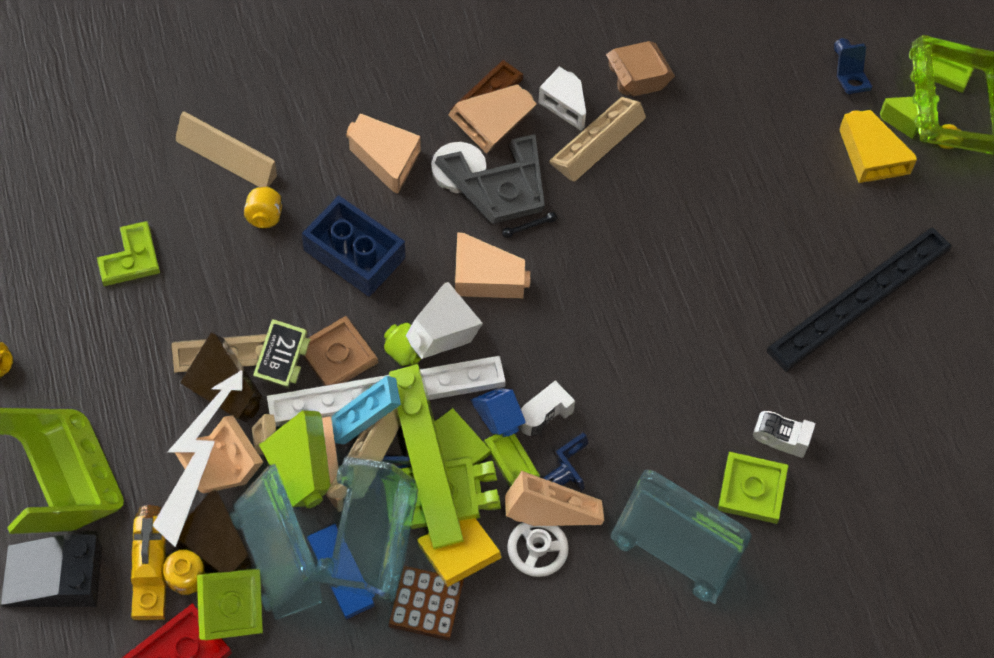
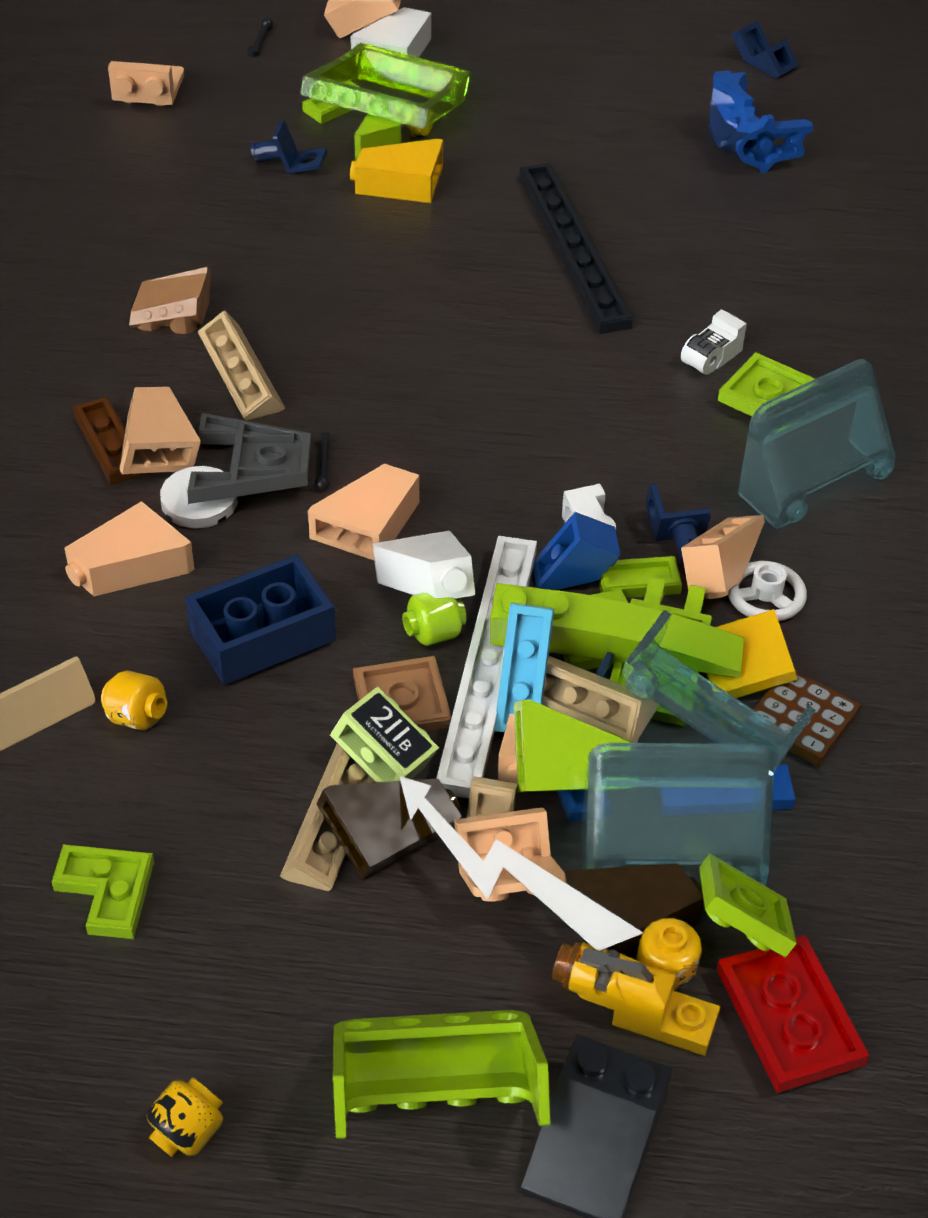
camera: 65 degrees left, 15 degrees down
(564, 97) = (174, 366): white slope -> none

